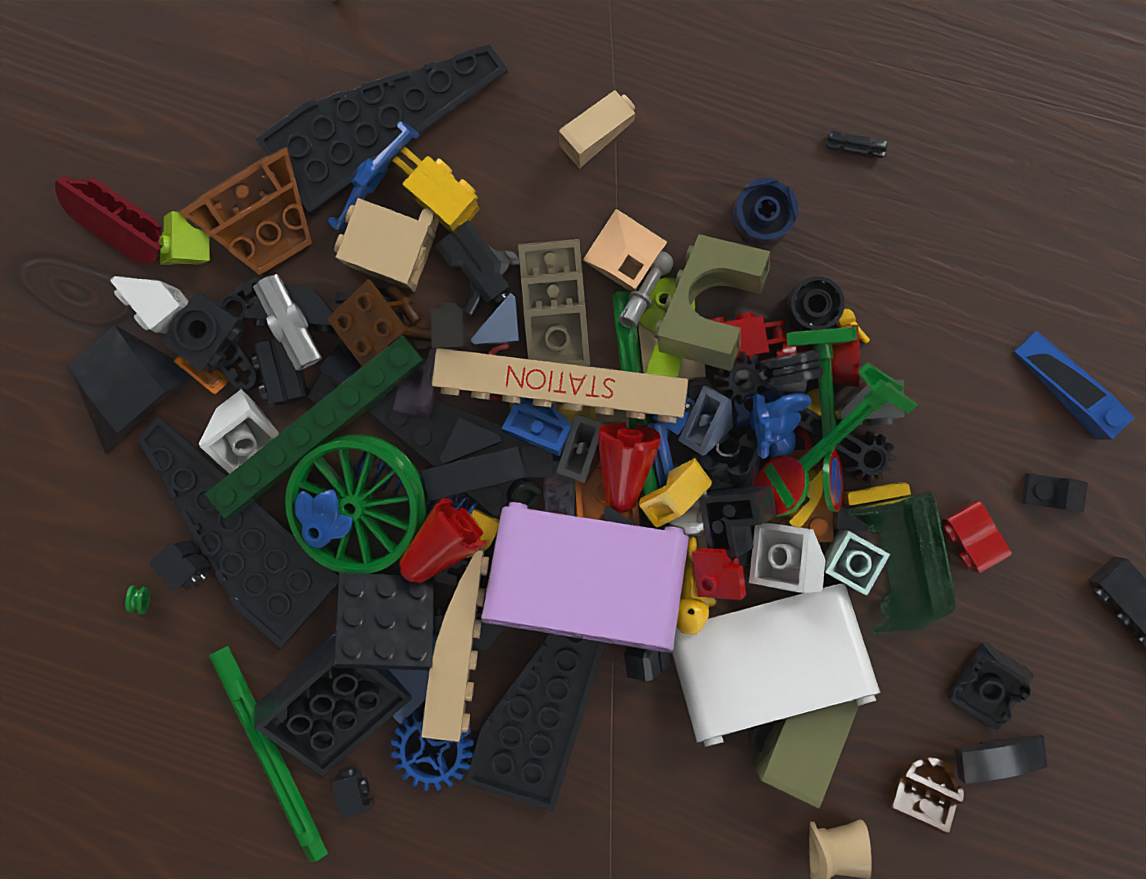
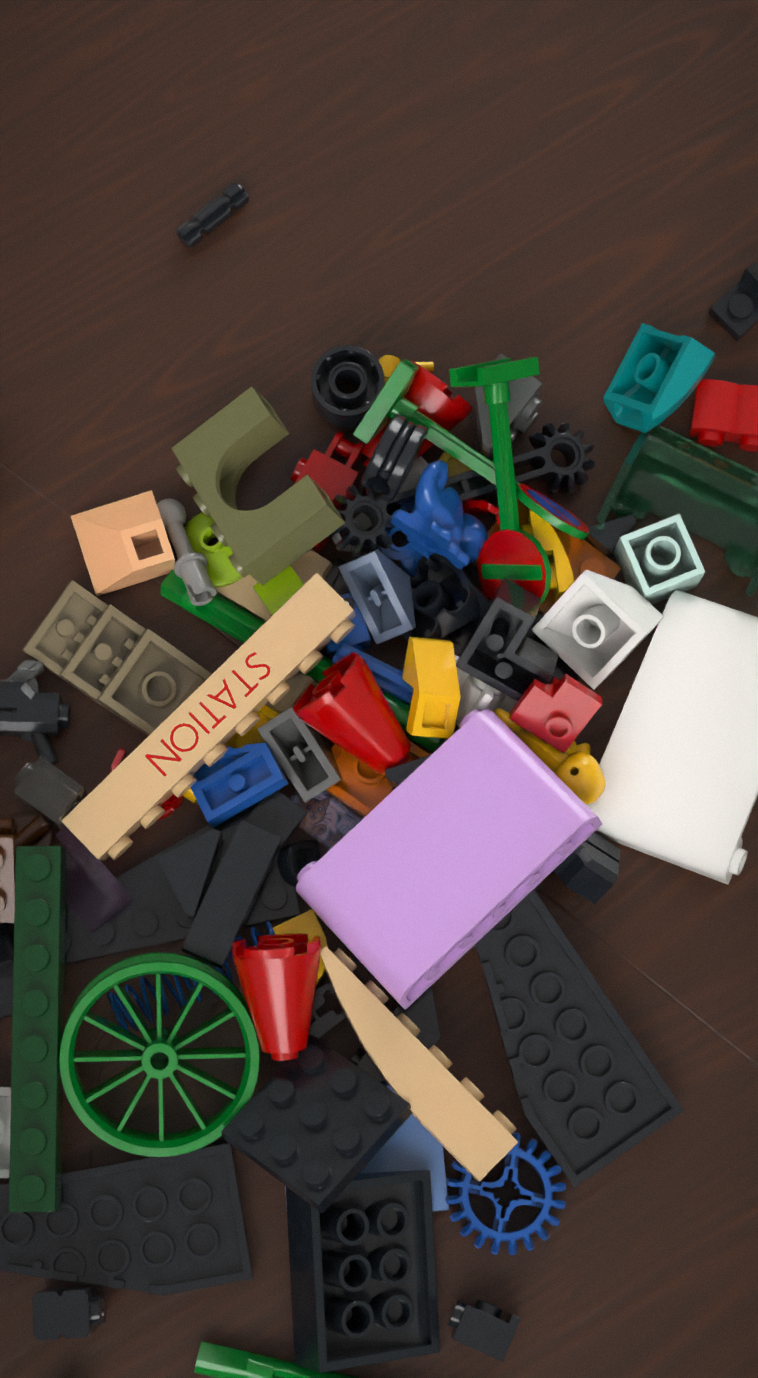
camera: 55 degrees left, 10 degrees down
(323, 515) = (140, 1097): blue plate -> none
(500, 326) = (95, 740): sand blue slope -> none
(772, 197) = (195, 341): dark blue brick -> none
(875, 493) = (598, 492): yellow tile -> none
(961, 475) = (655, 377): none -> teal slope
(1074, 388) = (654, 193): slope -> none

